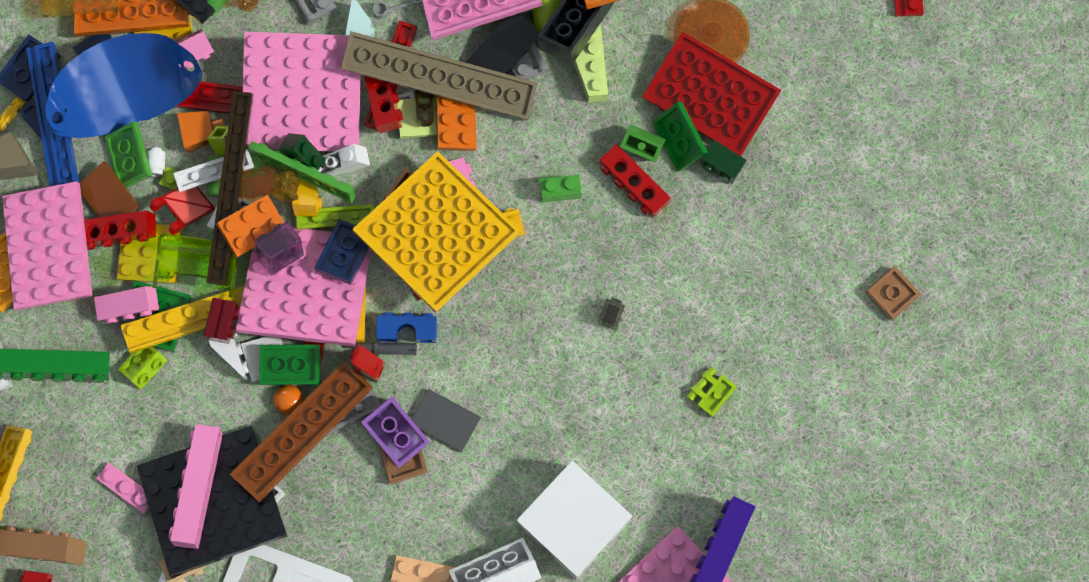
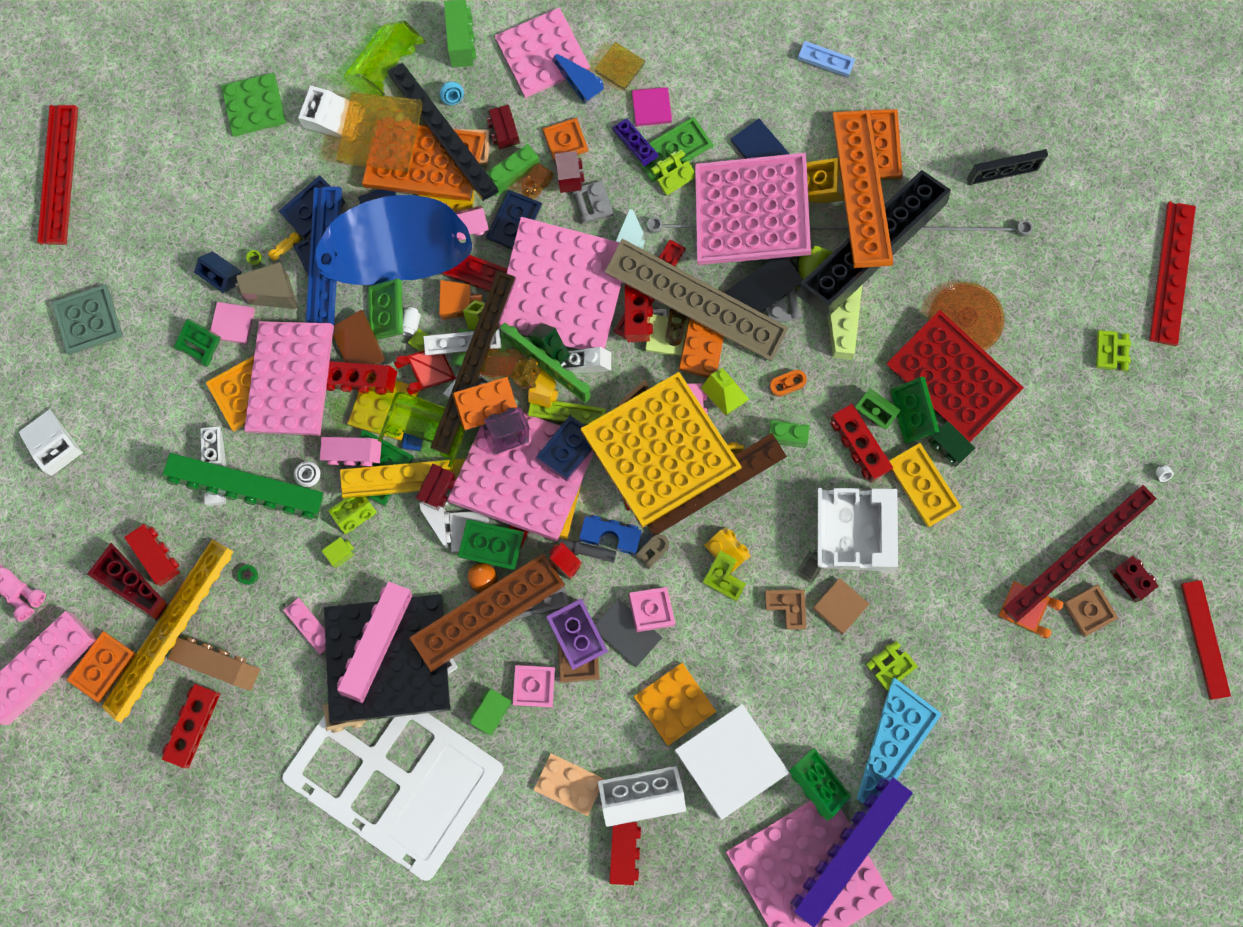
camera: 15 degrees right, 0 degrees up
(51, 452) = (247, 575): none -> green tile
(88, 337) = (307, 474): none -> white cone
(138, 407) = (339, 552): none -> lime brick
(186, 283) = (412, 443): none -> blue tile
(231, 34) = (506, 223): none -> dark blue tile
(327, 528) = (490, 711): none -> bright green brick
(364, 494) = (533, 686): none -> bright pink plate
(456, 327) = (658, 545): none -> dark tan plate
(464, 391) = (651, 609): none -> bright pink plate
(487, 161) = (724, 392): none -> lime slope
(508, 479) = (675, 704): none -> light orange plate
(525, 346) = (720, 578): none -> lime plate
(526, 316) = (726, 542): none -> yellow bracket
(532, 223) = (753, 462): none -> reddish brown plate
(548, 137) = (787, 383): none -> orange plate
(598, 352) = (792, 602): none -> medium nougat plate
(648, 266) = (858, 529): none -> white panel
(649, 345) = (841, 606): none -> medium nougat slope
(665, 521) = (820, 784): none -> green plate
(705, 208) = (924, 485): none -> yellow plate
(733, 456) = (900, 732): none -> medium azure wing
(830, 305) = (1033, 618): none -> flag
(856, 36) = (1106, 350): none -> lime plate
(870, 240) = (1079, 554): none -> dark red plate
(928, 252) = (1134, 578): none -> dark red brick
(936, 143) = (1164, 473): none -> white hinge
(1009, 296) = (1205, 640): none -> red tile

